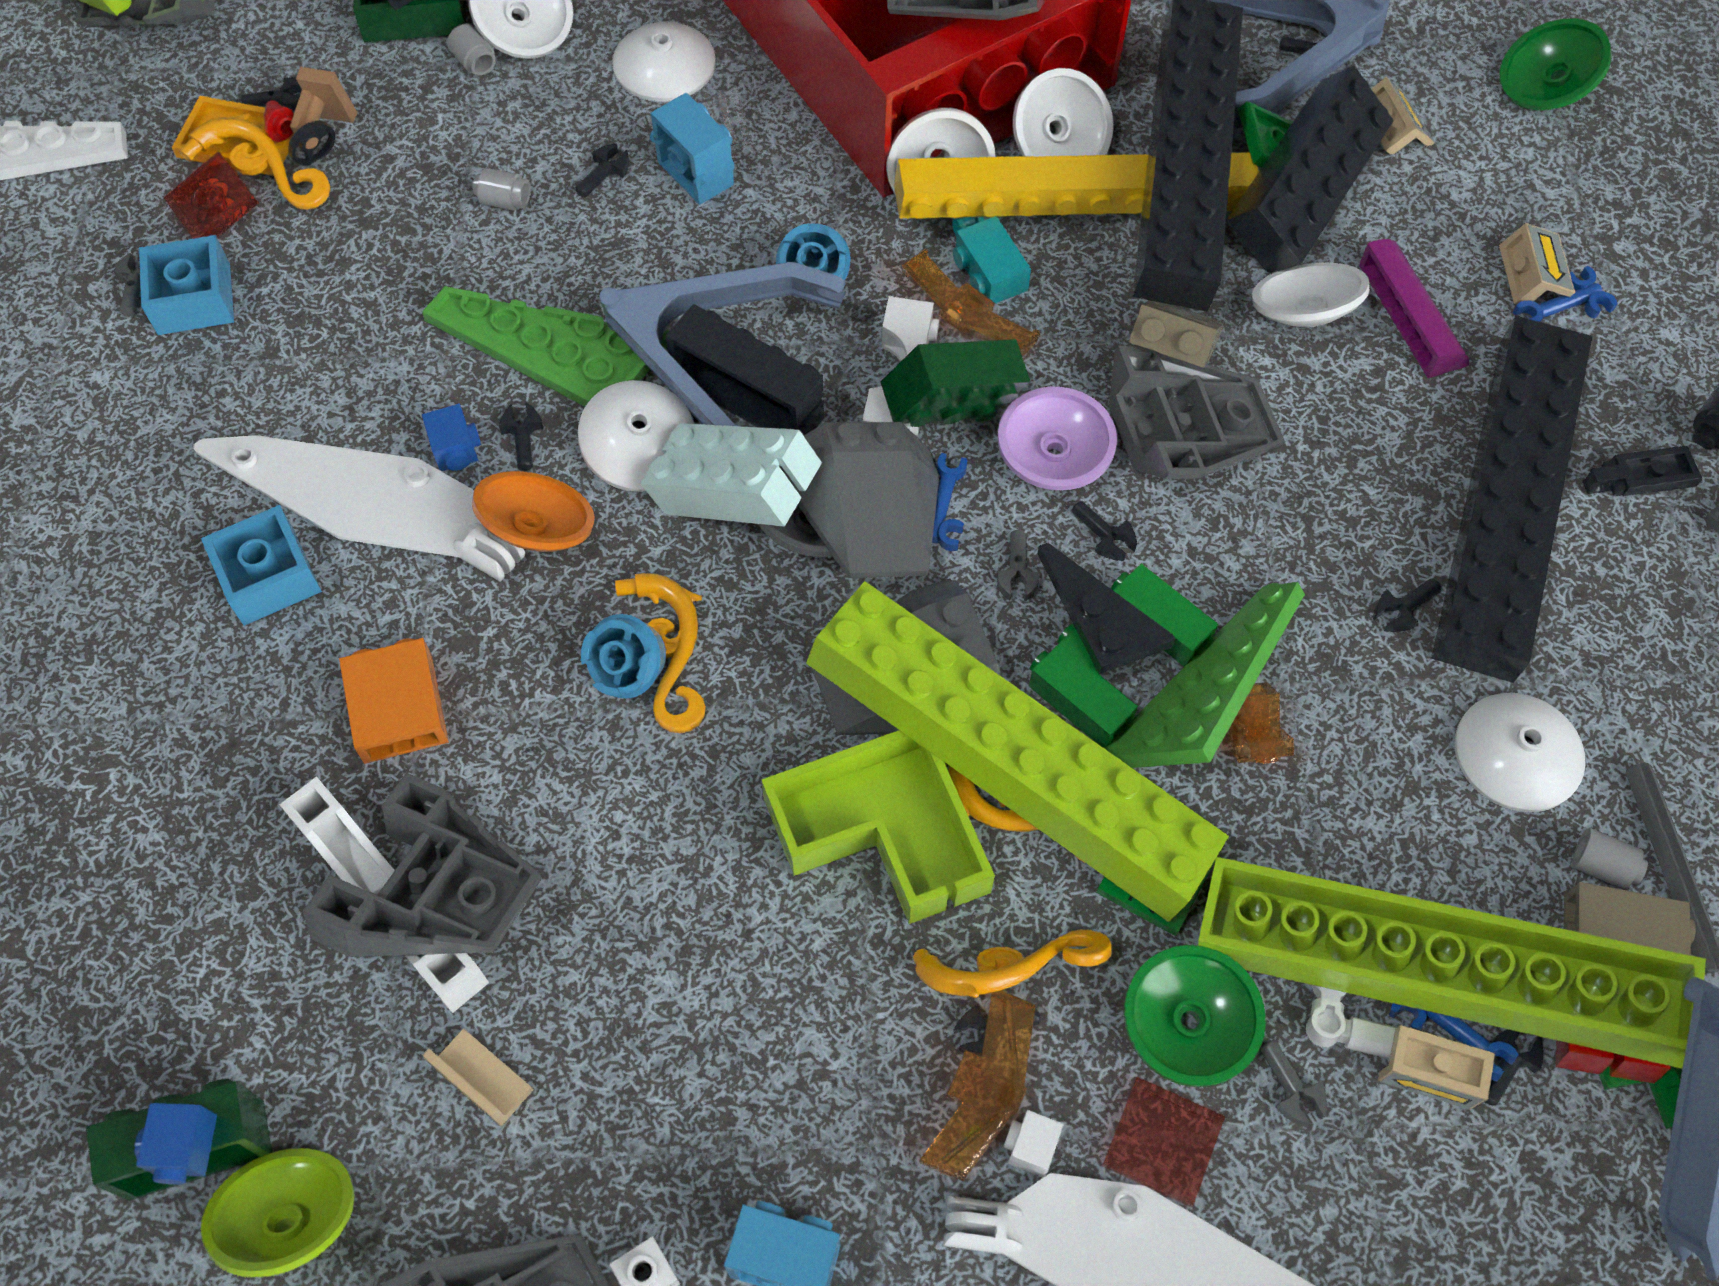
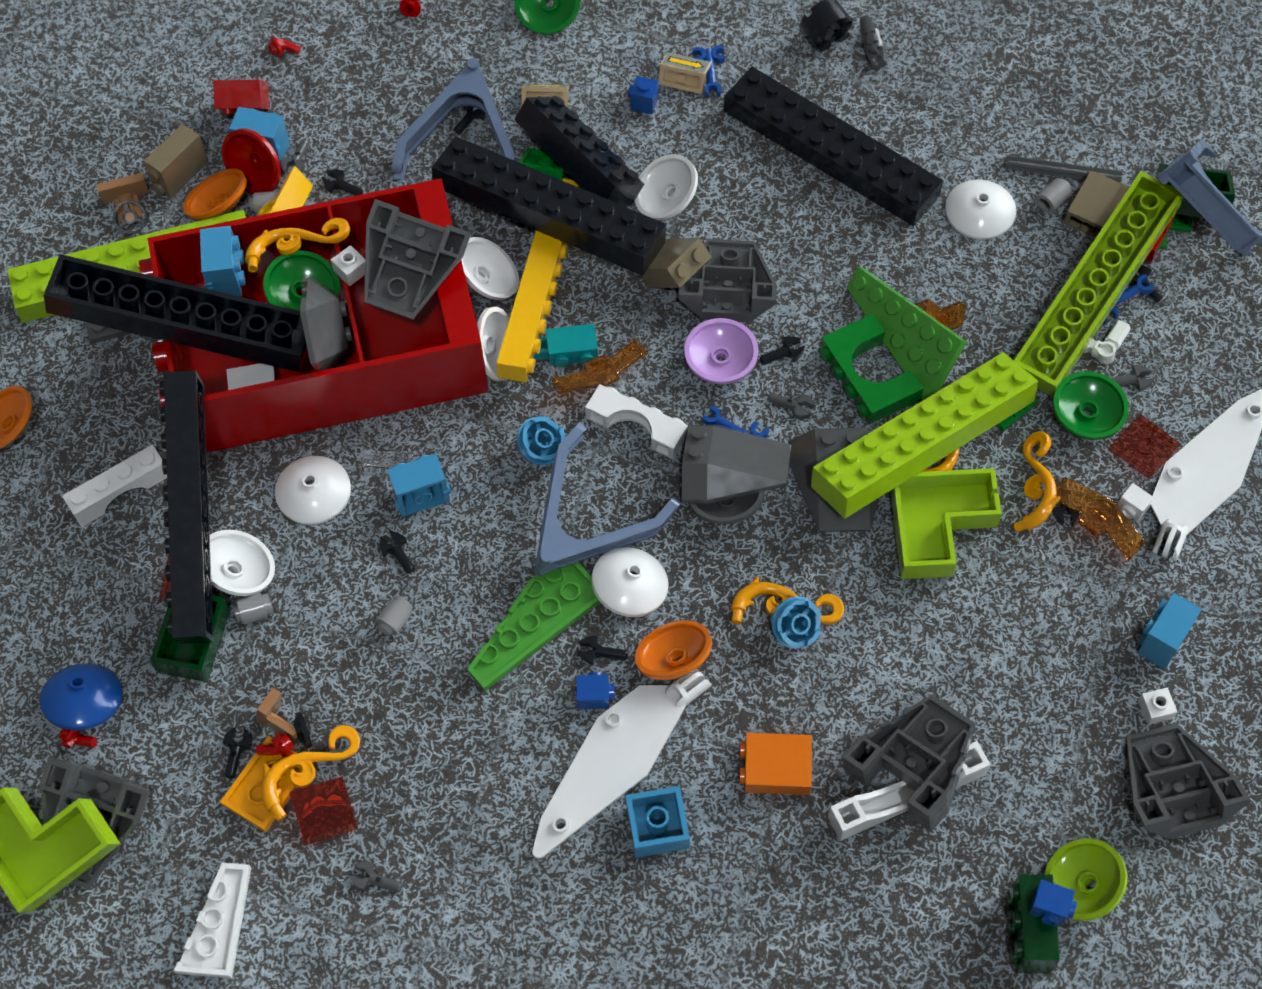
camera: 70 degrees left, 0 degrees up
(186, 285) = (404, 834): dark azure brick -> none
(480, 1077) = (1028, 766): tan panel -> none
(731, 473) = (694, 527): light aqua piece -> none
(747, 374) = (619, 500): black piece -> none
(955, 381) = (674, 387): dark green piece -> none
(1105, 621) = (856, 365): black wing -> none
(1405, 605) = (879, 225): black bar -> none
(1412, 309) = (690, 143): magenta brick -> none
(1438, 1068) = (1144, 309): tan panel -> none
(1463, 226) = (644, 94): none -> blue brick
(1645, 472) = (837, 81): black hinge -> none

